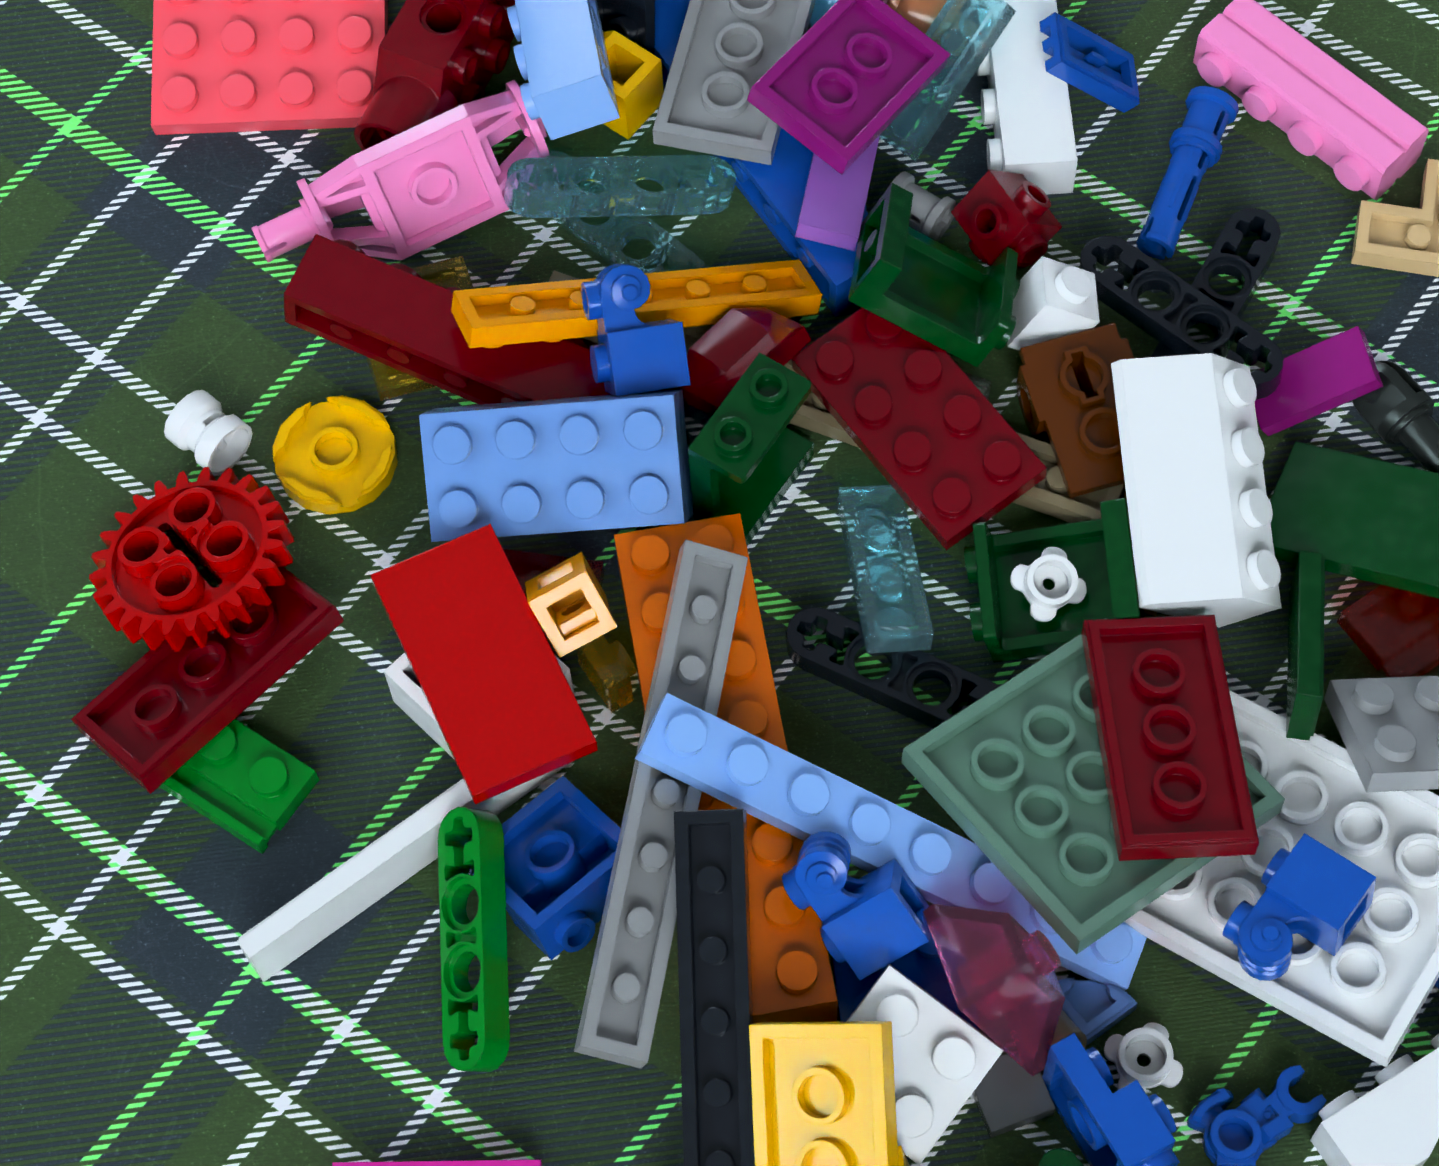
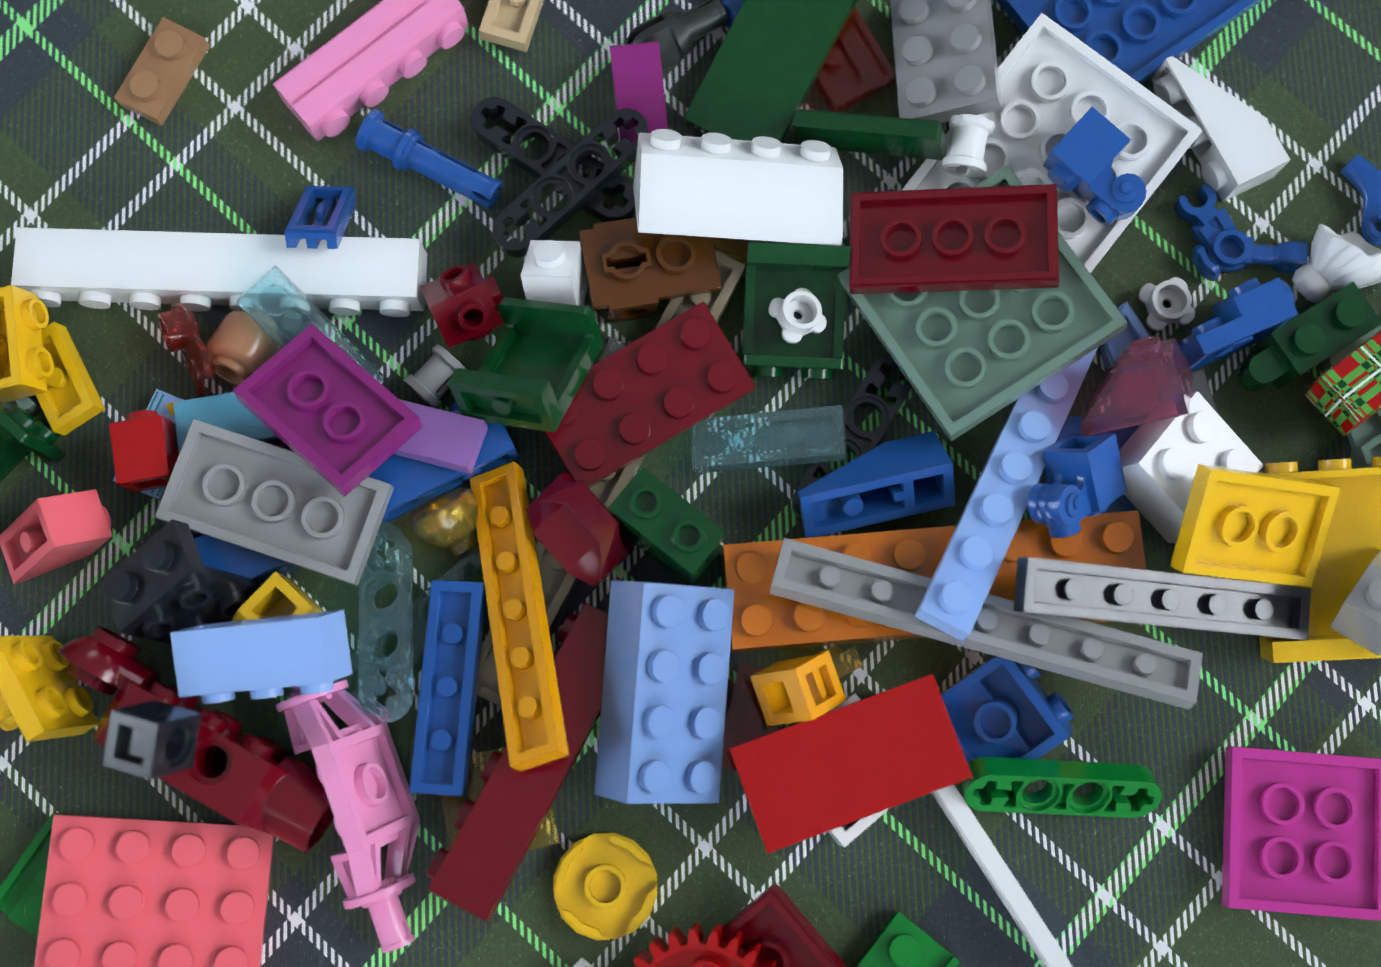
camera: 90 degrees left, 15 degrees up
(540, 249) = (448, 688): none -> blue plate
(632, 353) = (574, 611): blue brick -> none
(743, 238) = (449, 521): none -> clear yellow brick
(836, 692) = (880, 486): none -> blue slope
(1305, 751) = (967, 145): none -> white bush

